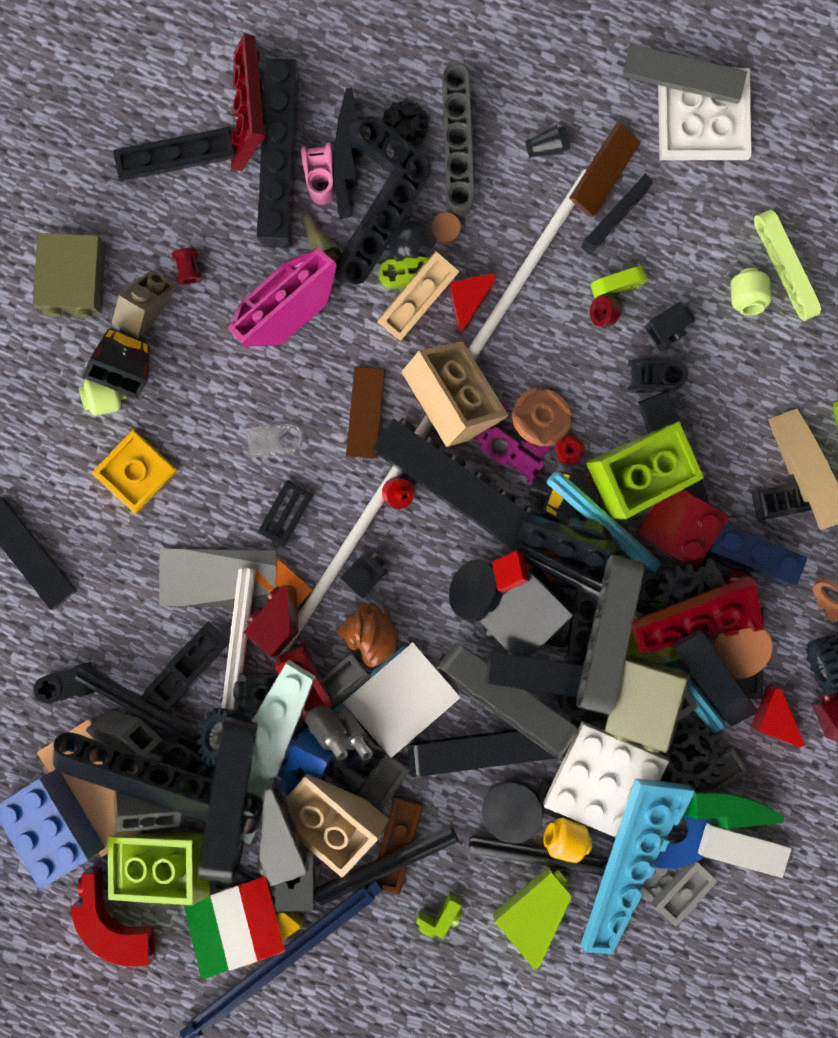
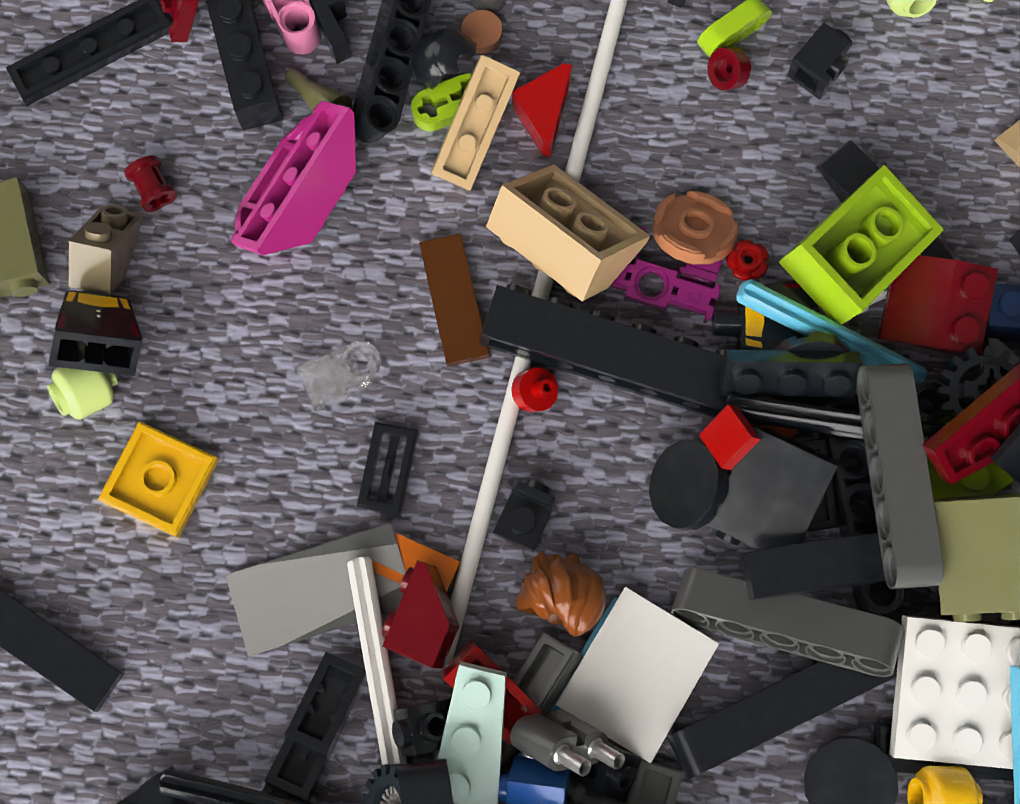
camera: 15 degrees left, 10 degrees down
(649, 375) = (820, 131): black piece -> none

